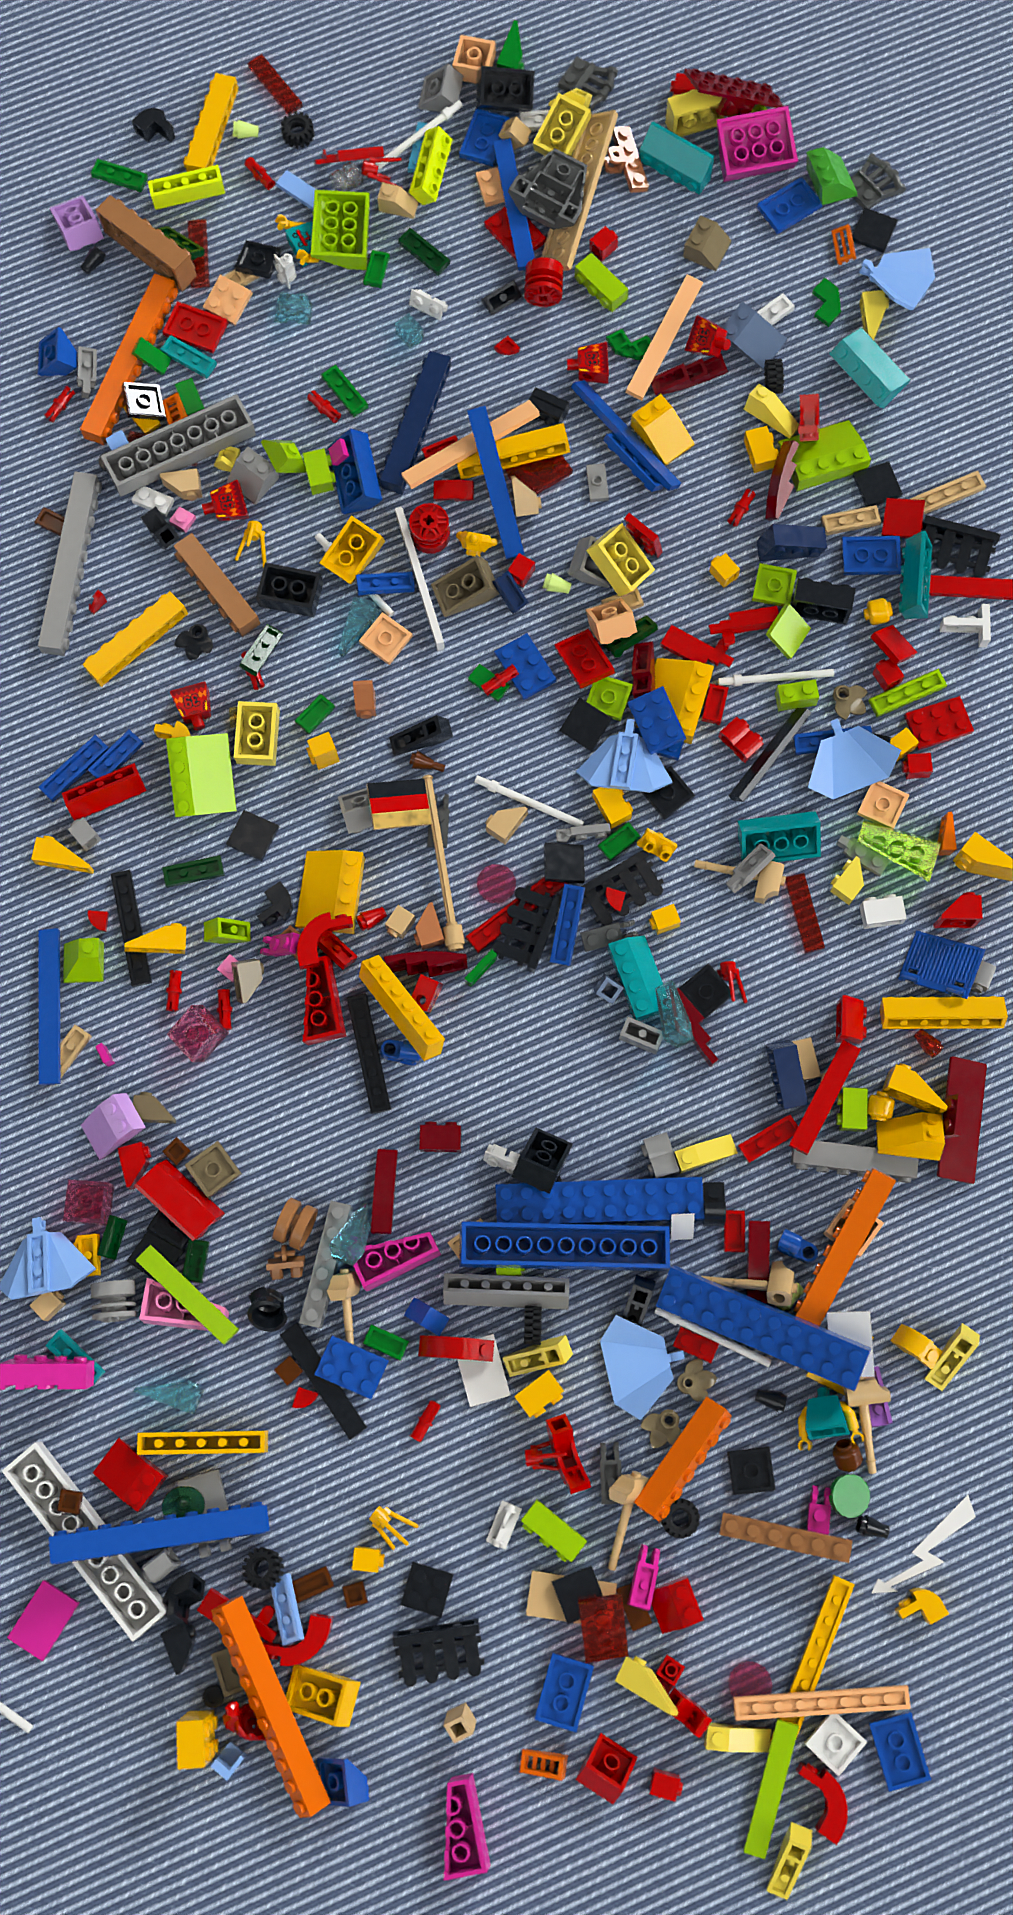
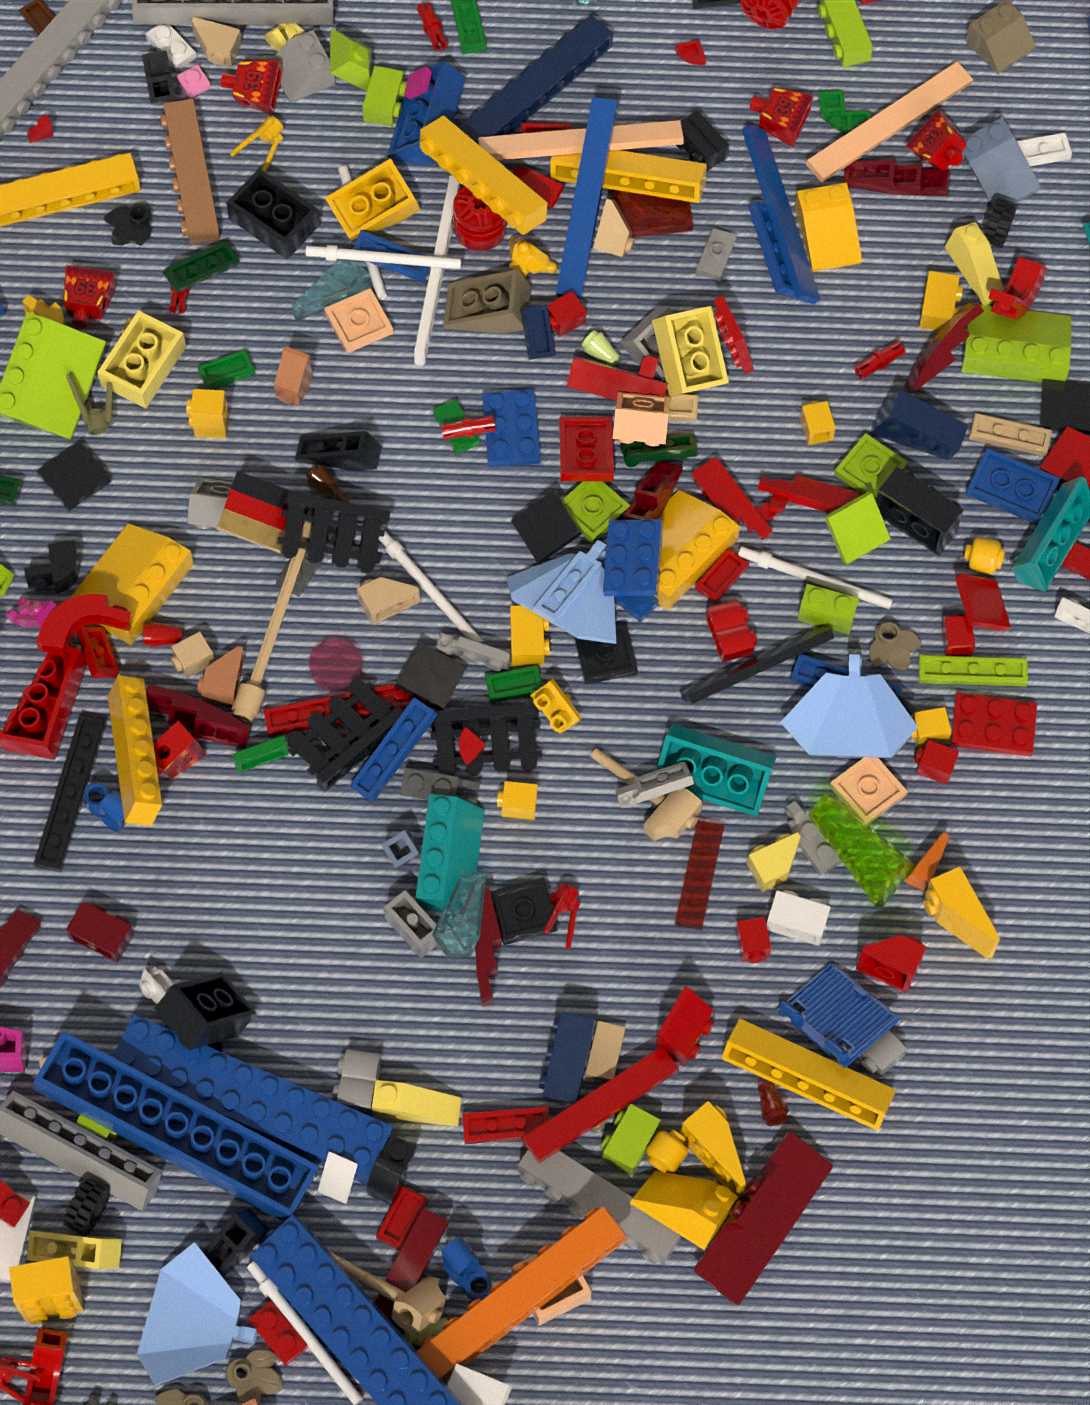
camera: 20 degrees right, 10 degrees down
(247, 790) = (95, 419): none -> olive plant
(347, 599) = (333, 253): none -> white bar
(422, 499) = (483, 175): none -> yellow brick
(438, 791) = (320, 521): none -> black fence
(576, 604) = (609, 380): none -> red piece
(862, 940) = (753, 940): none -> red brick

